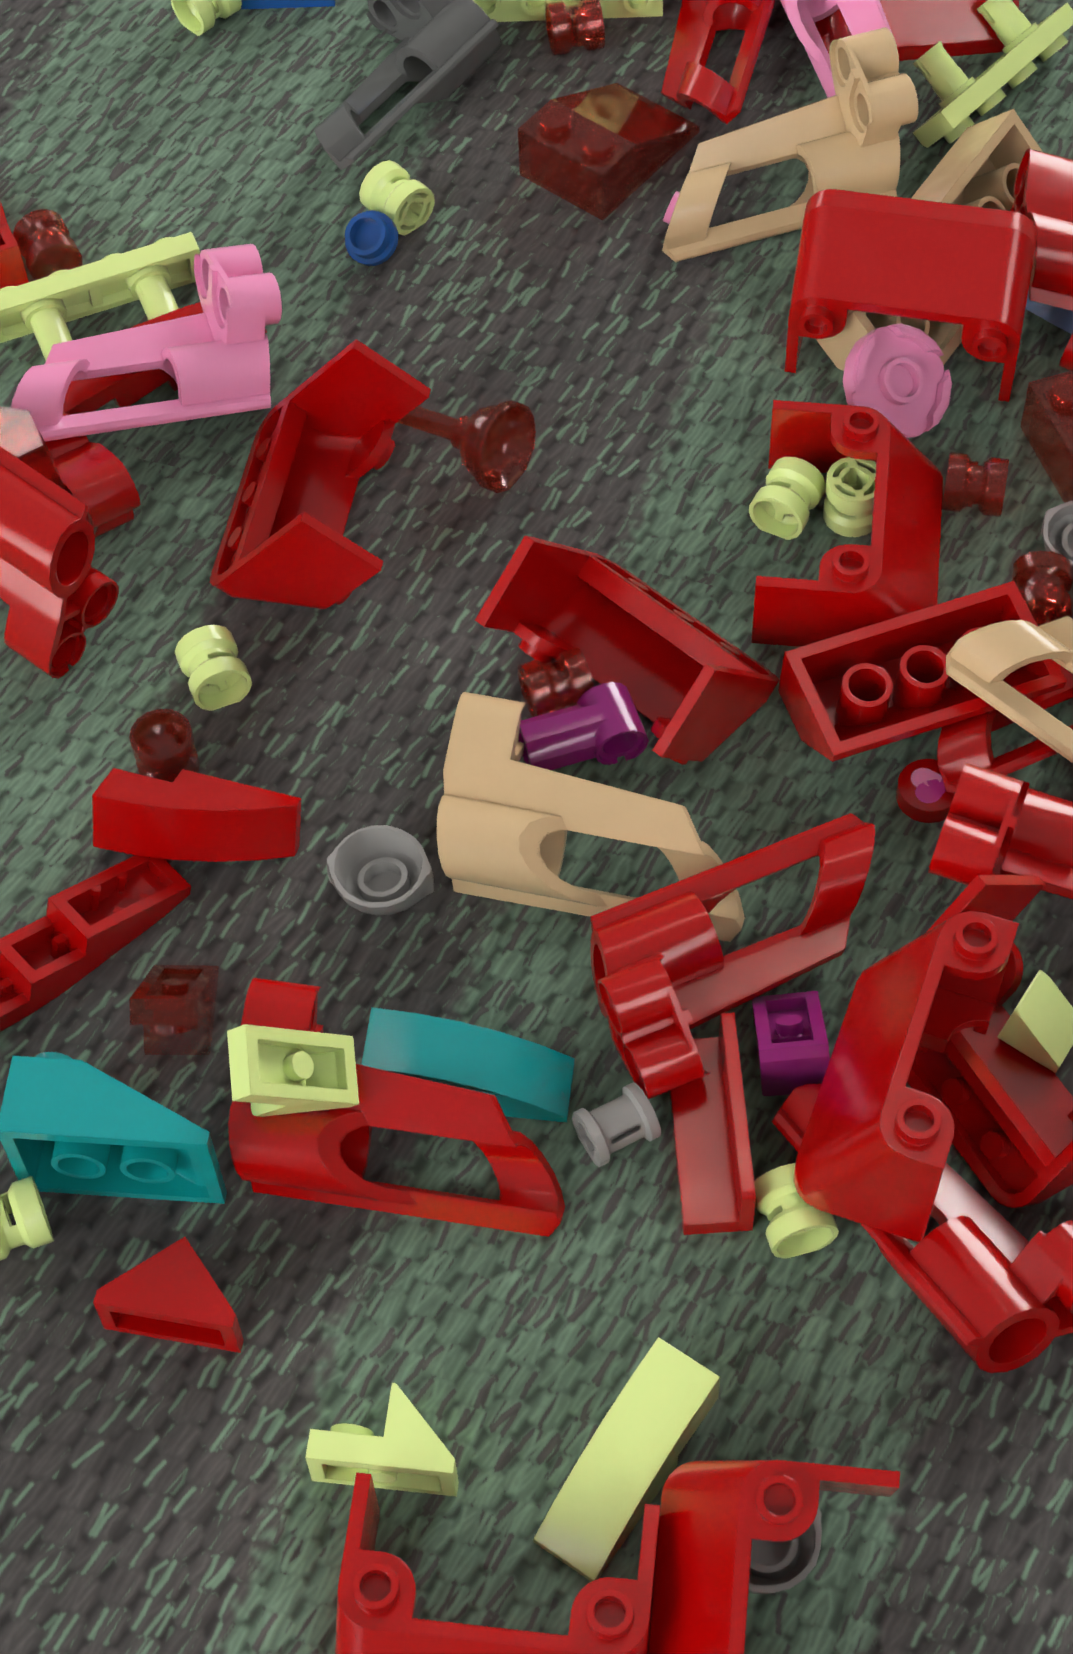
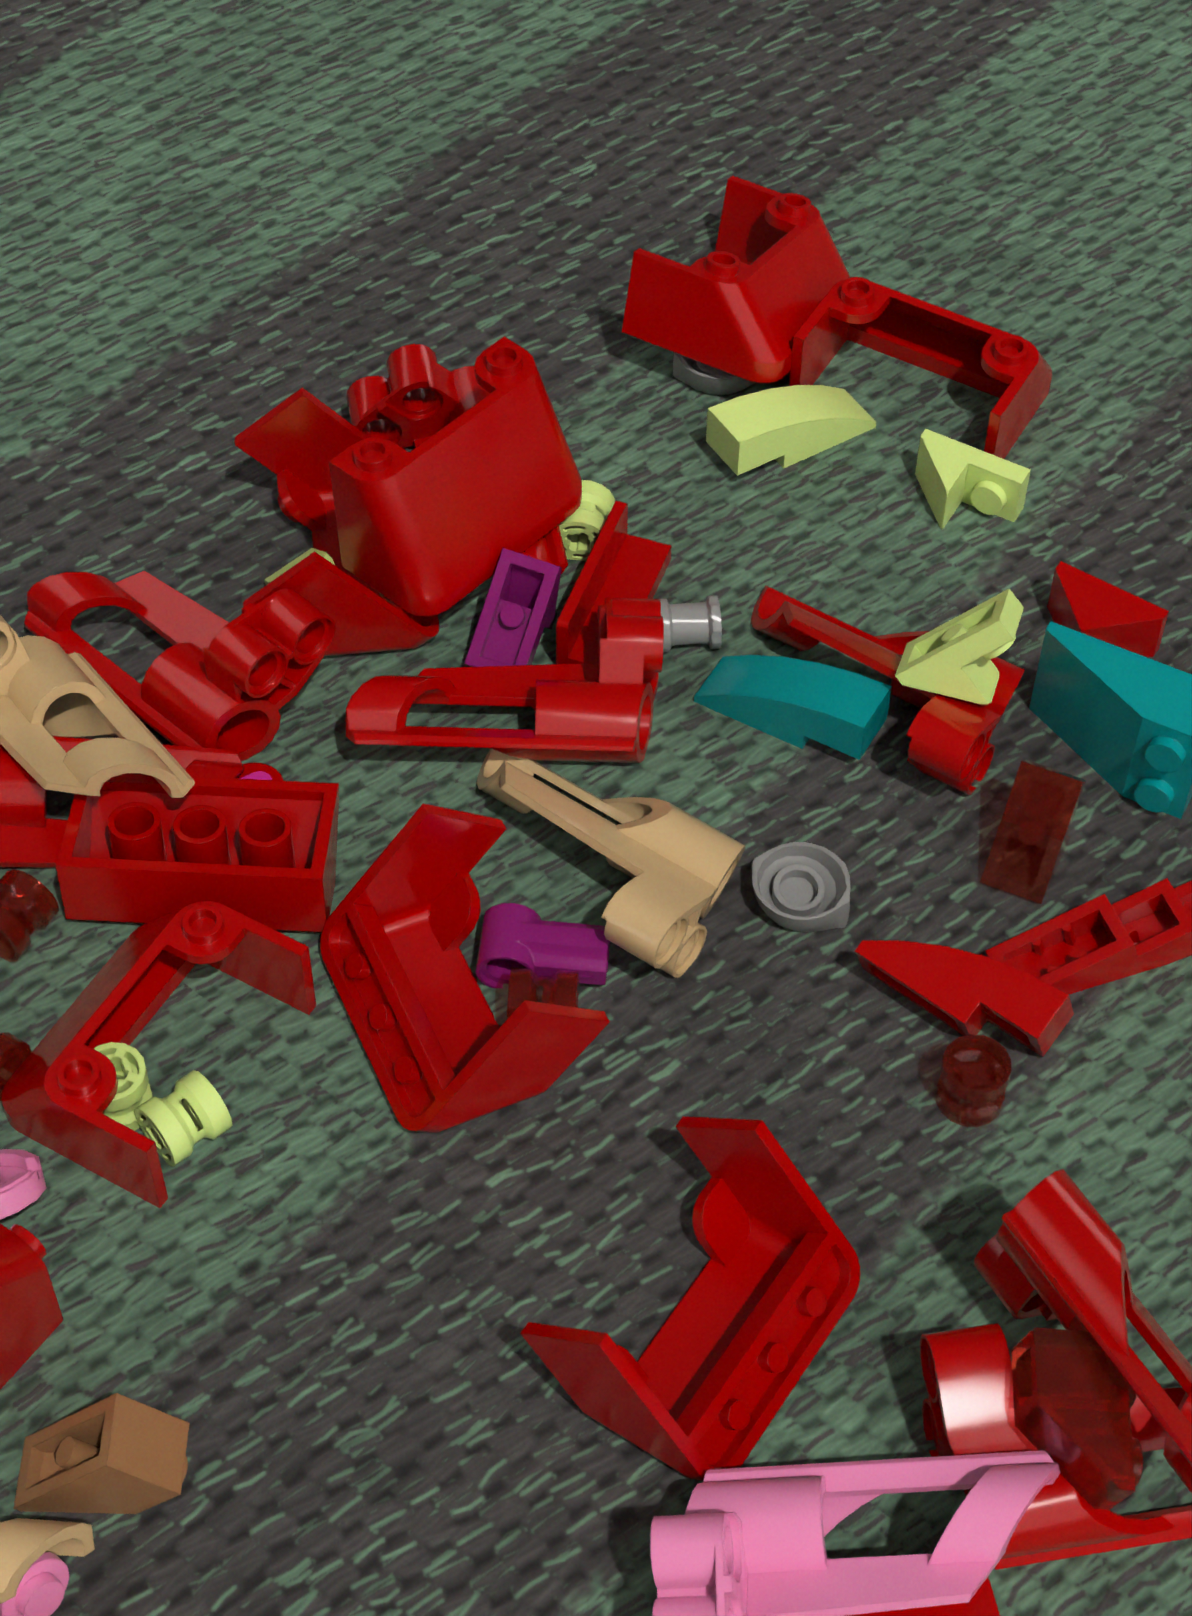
camera: 160 degrees left, 5 degrees down
(212, 664) = (892, 1160): yellowish green wheel -> none
(491, 442) = (470, 1306): clear red piece -> none
(683, 280) = (104, 1460): none -> medium nougat slope

